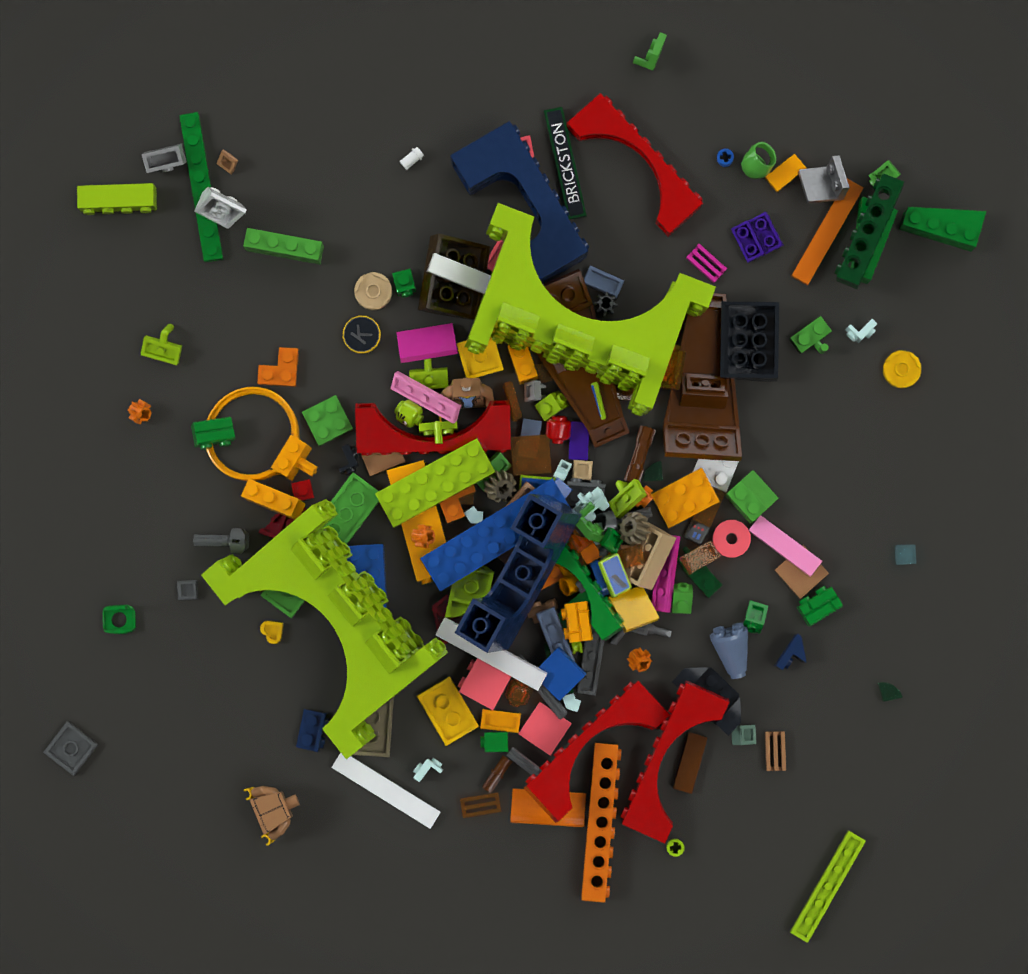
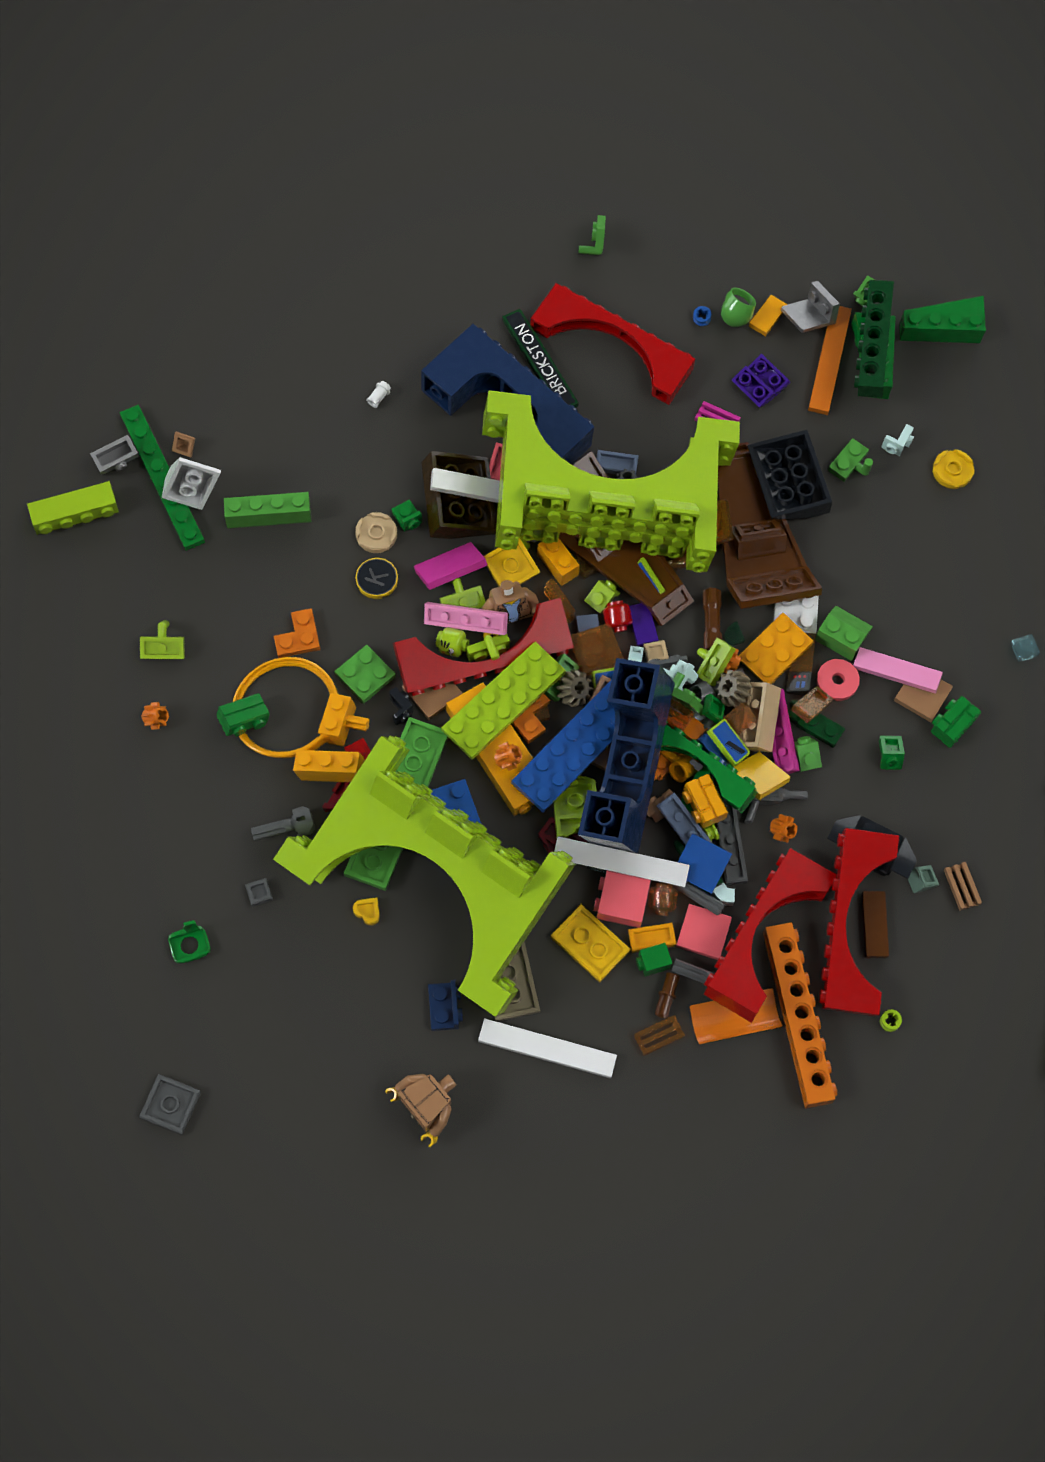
camera: 20 degrees left, 15 degrees down
(422, 769) = (581, 1013): light aqua bracket -> none
(474, 516) = (554, 727): light aqua piece -> none
(532, 391) = (578, 585): light grey tile -> none
(732, 648) = (879, 789): sand blue cone -> none
(794, 648) = (945, 774): dark blue slope -> none

